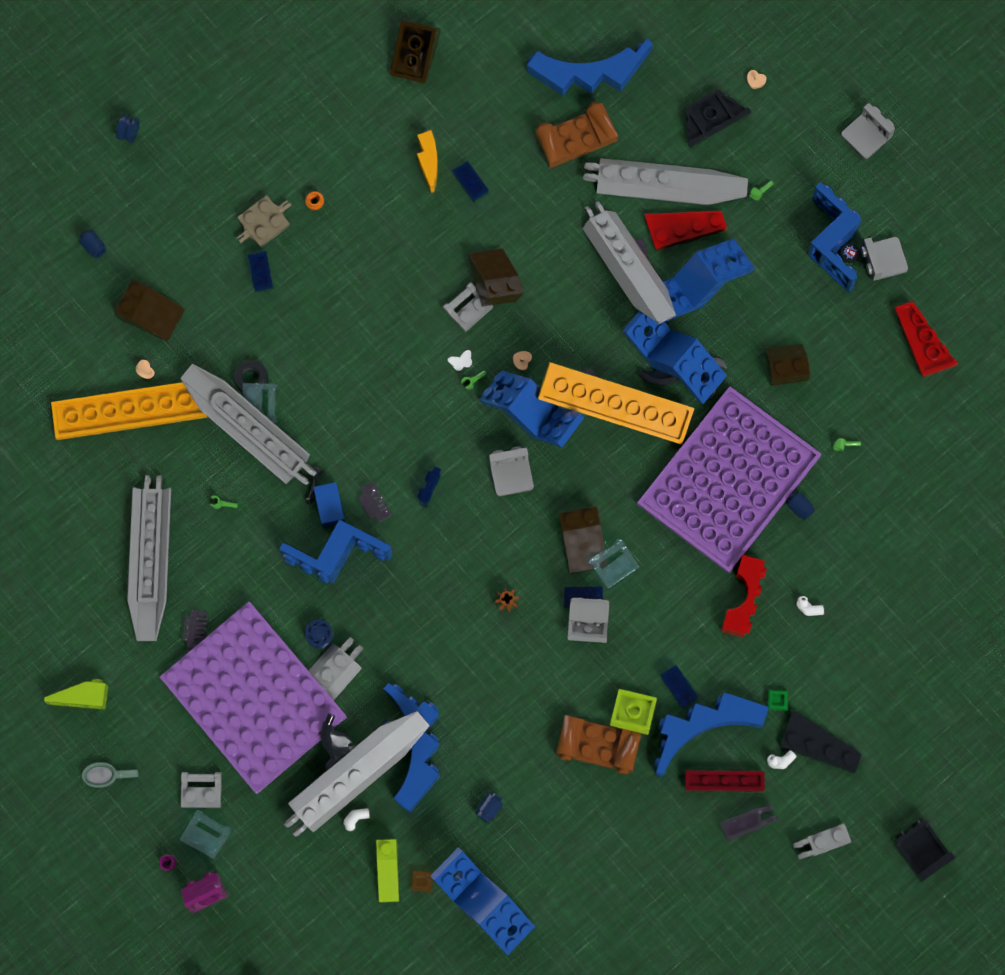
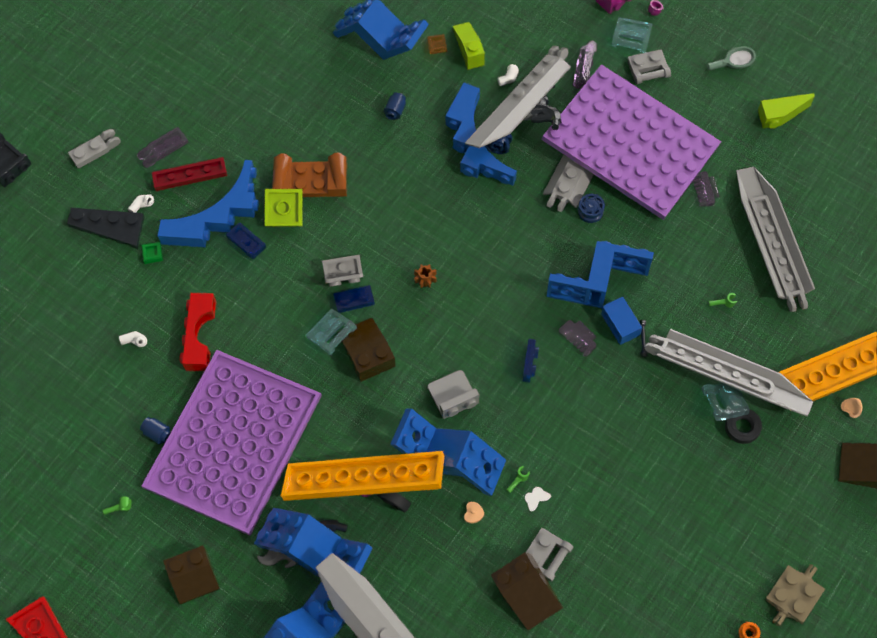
camera: 165 degrees right, 10 degrees down
(260, 271) = (776, 537): clear blue plate -> none
(270, 808) = (584, 64): none -> clear purple hinge

